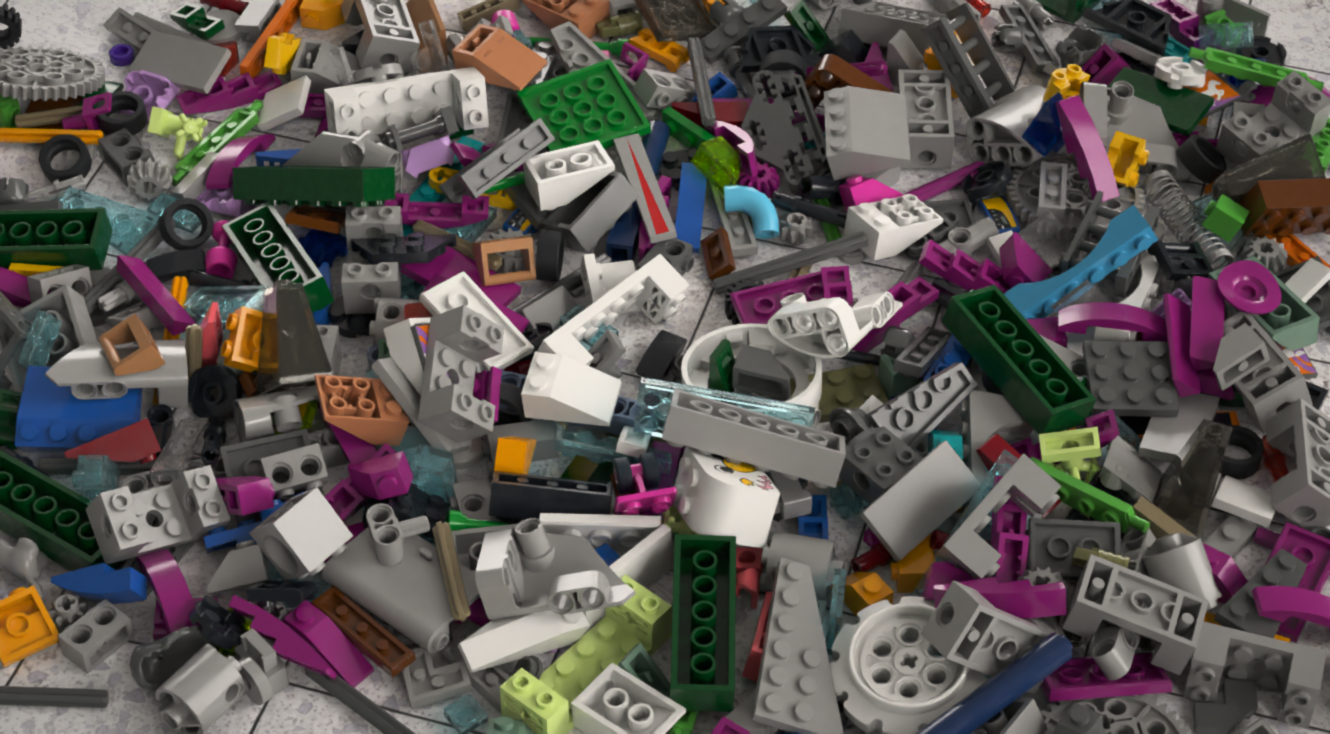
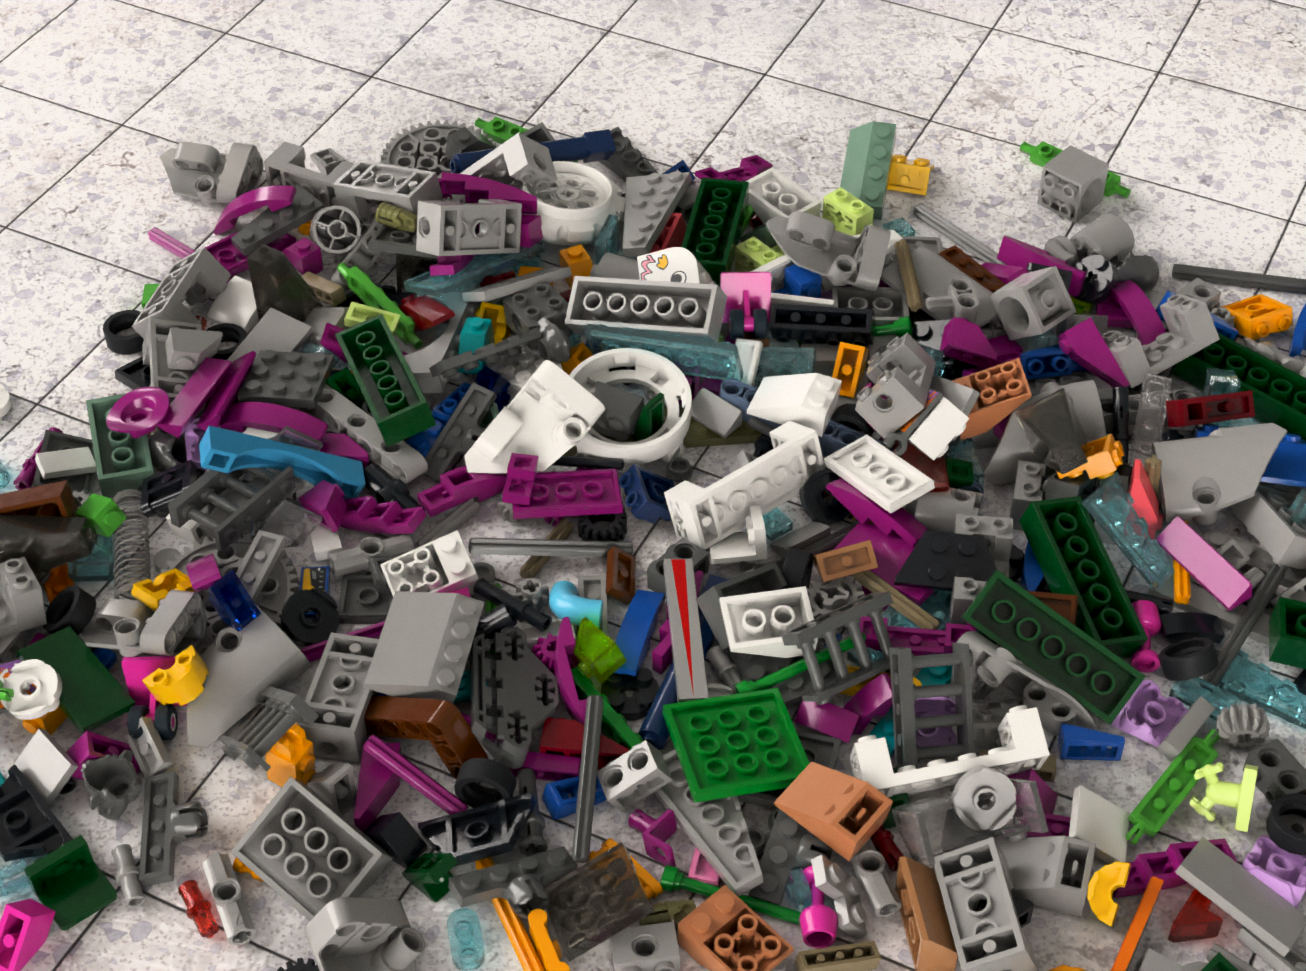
camera: 170 degrees left, 0 degrees up
(131, 330) = (1200, 452): medium nougat tile -> none
(232, 156) = (1142, 749): magenta slope -> none
(291, 464) = (1047, 369): light grey brick -> none
(661, 355) = (703, 473): black slope -> none
(703, 314) = (646, 493): none -> dark blue plate

